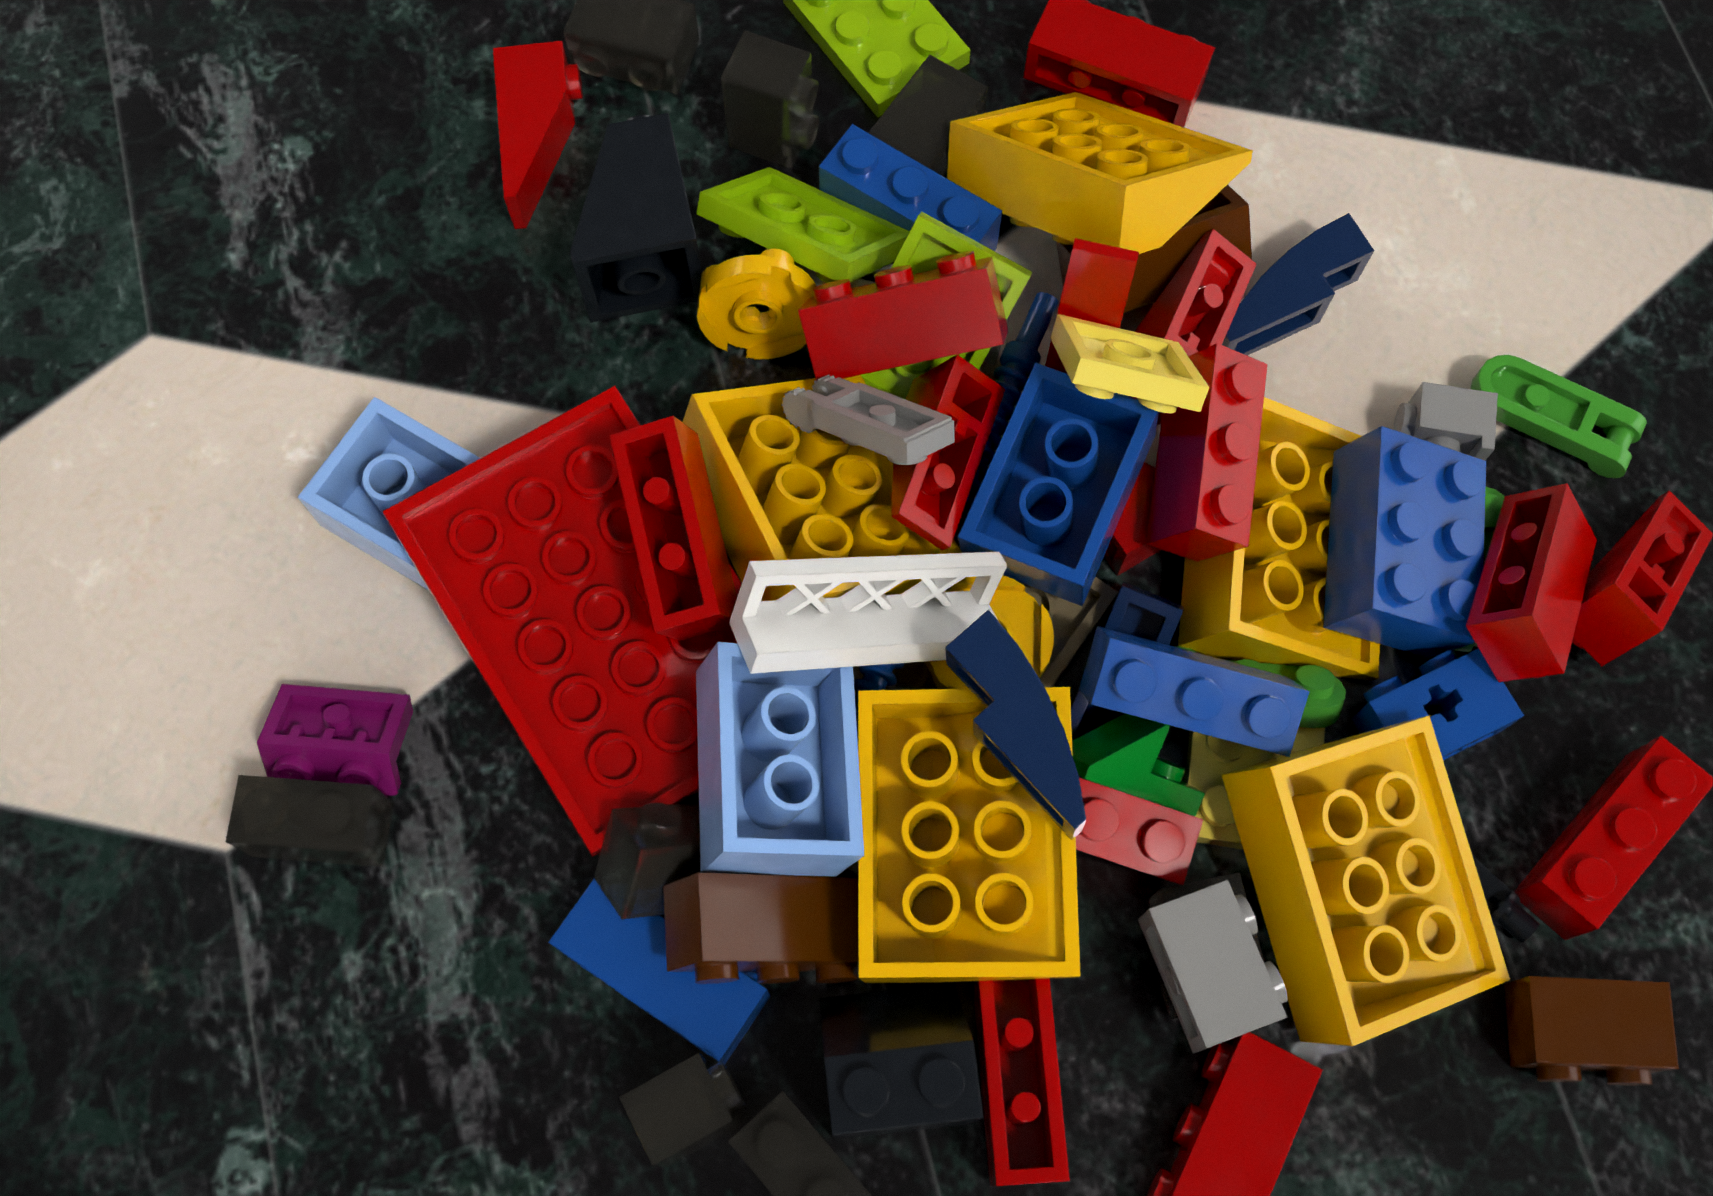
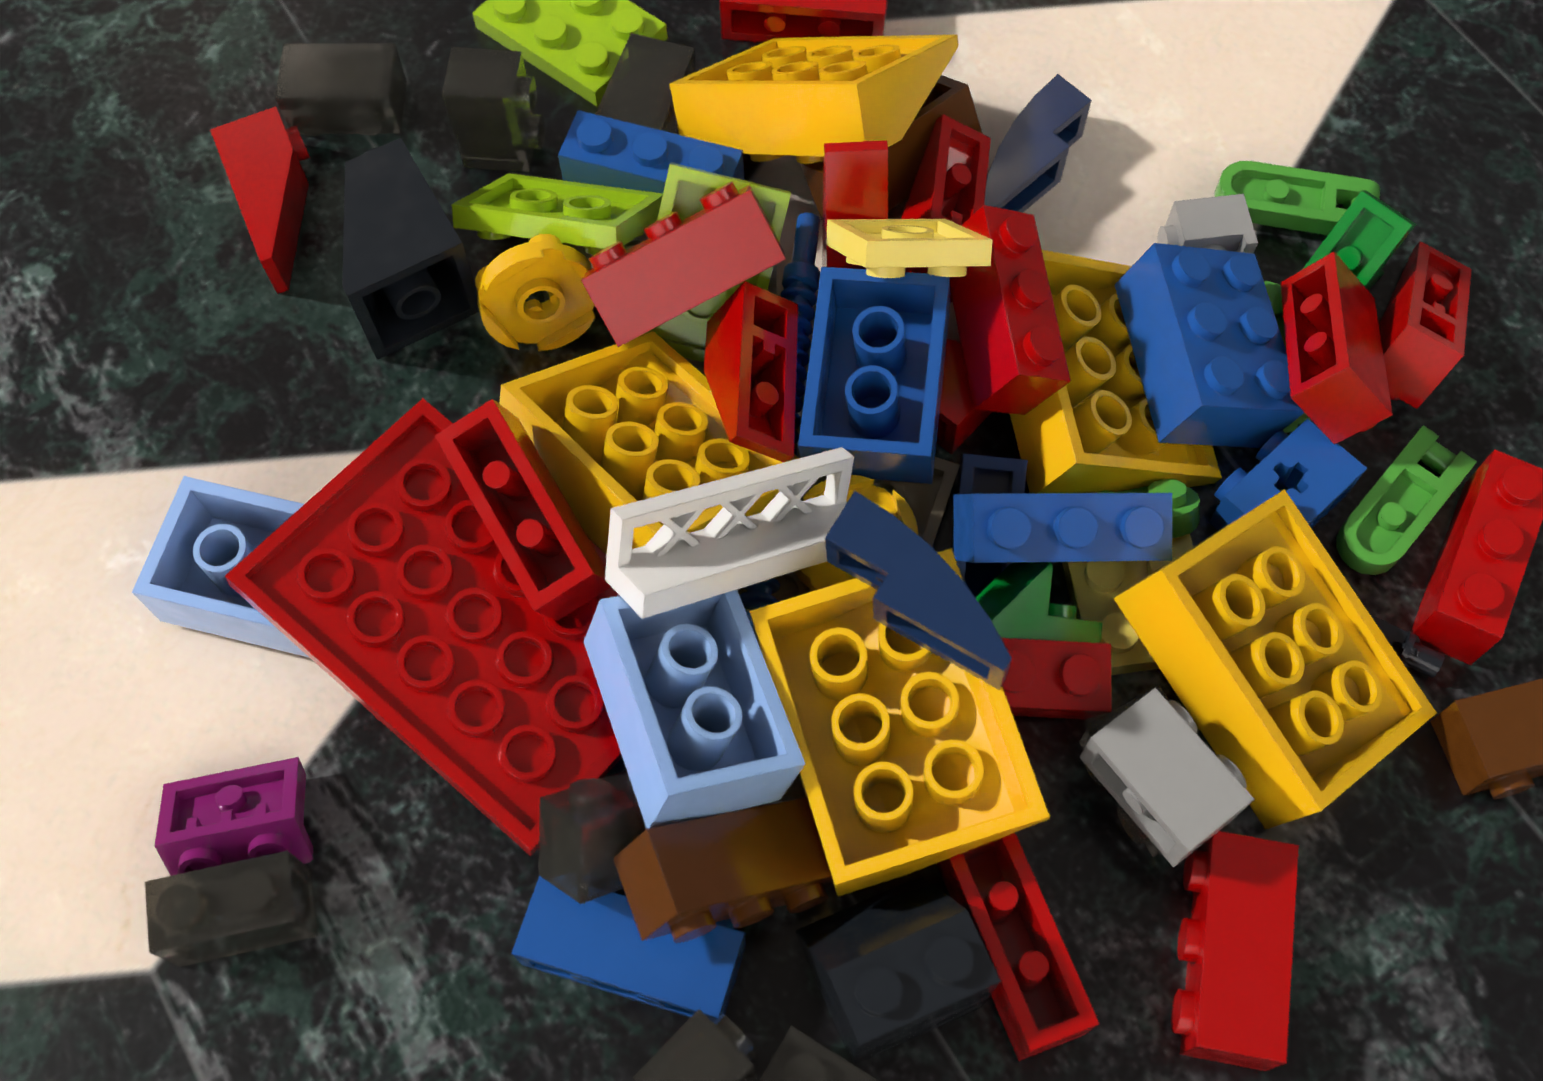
camera: 15 degrees left, 5 degrees down
(870, 419) = (680, 359): light grey hinge -> none
(1551, 759) = (1401, 504): none -> bright green plate
(1607, 476) = (1366, 237): none -> green slope

